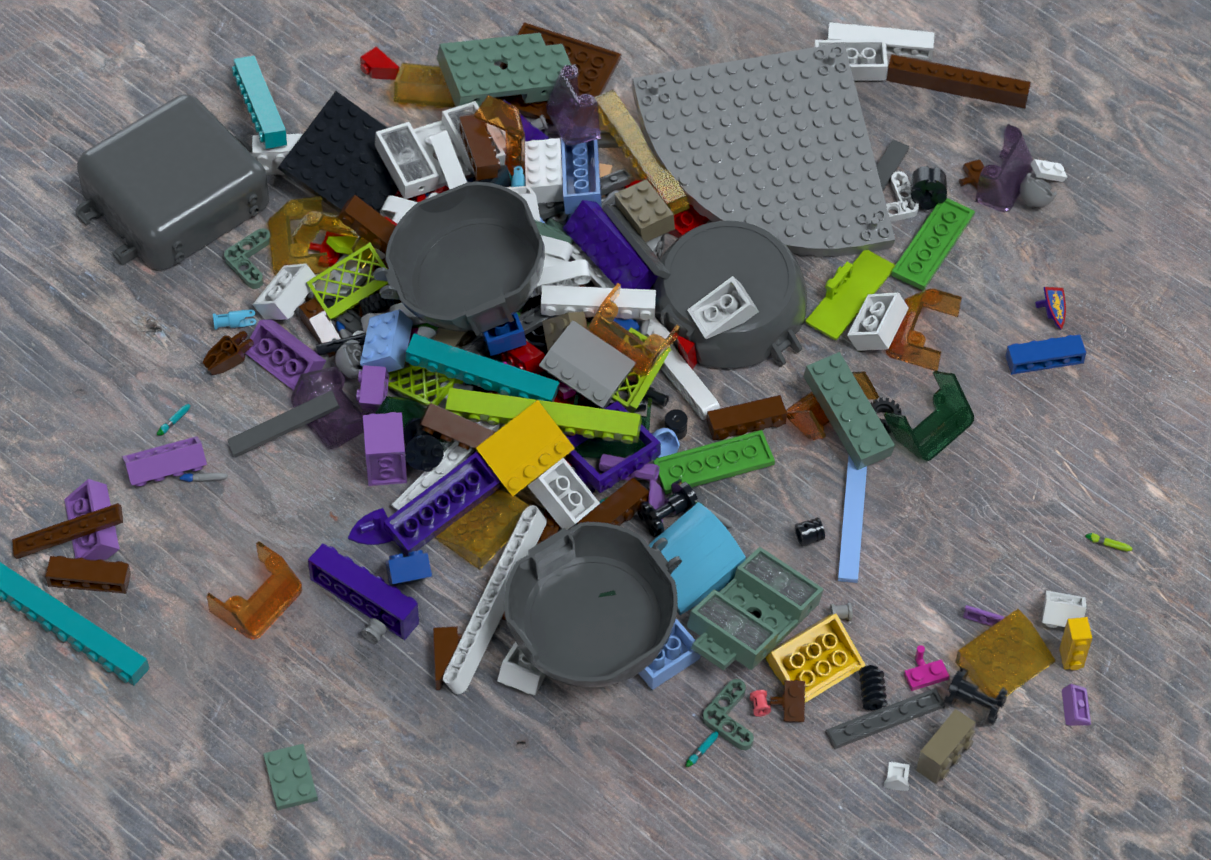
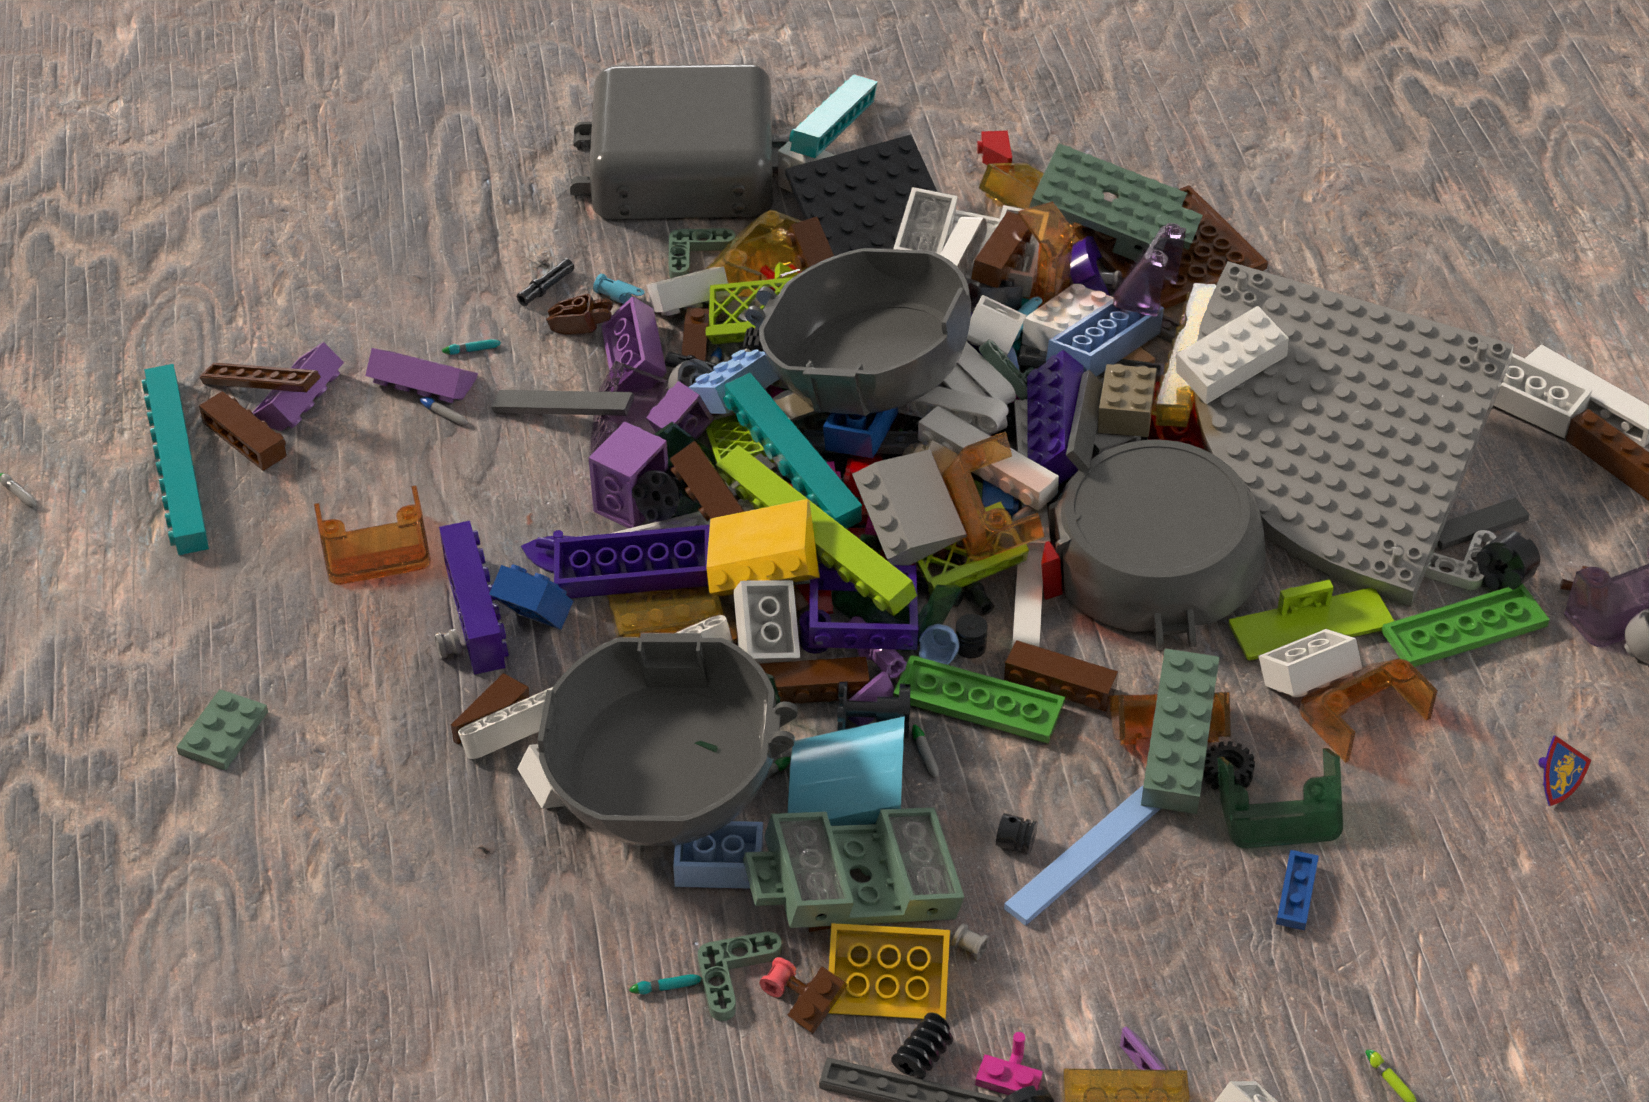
camera: 40 degrees right, 10 degrees down
(175, 348) = (538, 287): none -> black pin
(689, 144) = (1232, 354): none -> white brick
(723, 309) = (1115, 531): white slope -> none
(979, 466) = (1297, 890): none -> blue plate
(1045, 354) = (1500, 818): blue brick -> none

